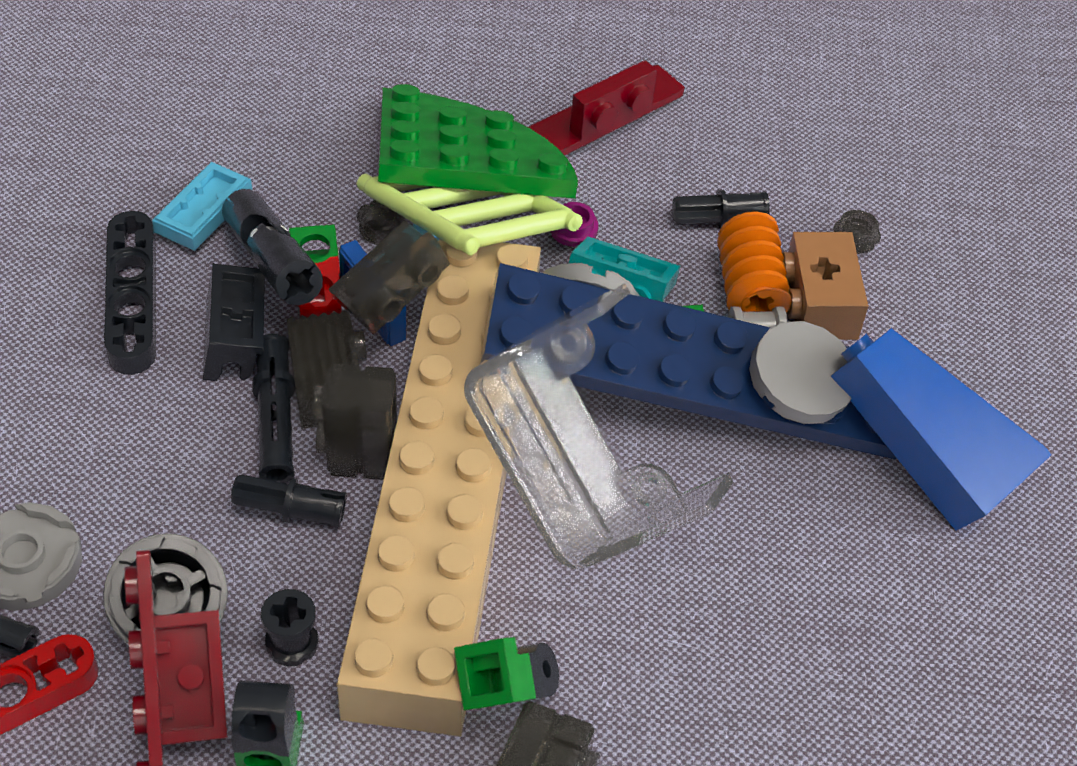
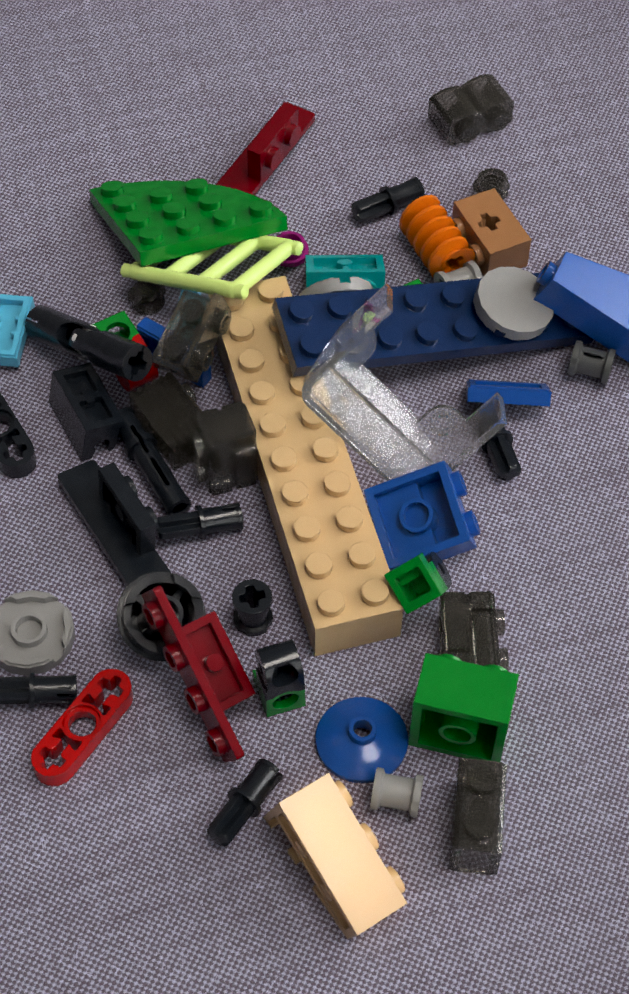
camera: 20 degrees left, 5 degrees up
(191, 462) = (115, 517): none -> black bracket
(561, 592) = (422, 515): none -> blue plate
(707, 543) = (502, 454): none -> black axle
(752, 481) = (512, 392): none -> blue tile
(873, 138) = (470, 109): none -> clear smoke brick
(879, 481) = (591, 362): none -> dark grey bush

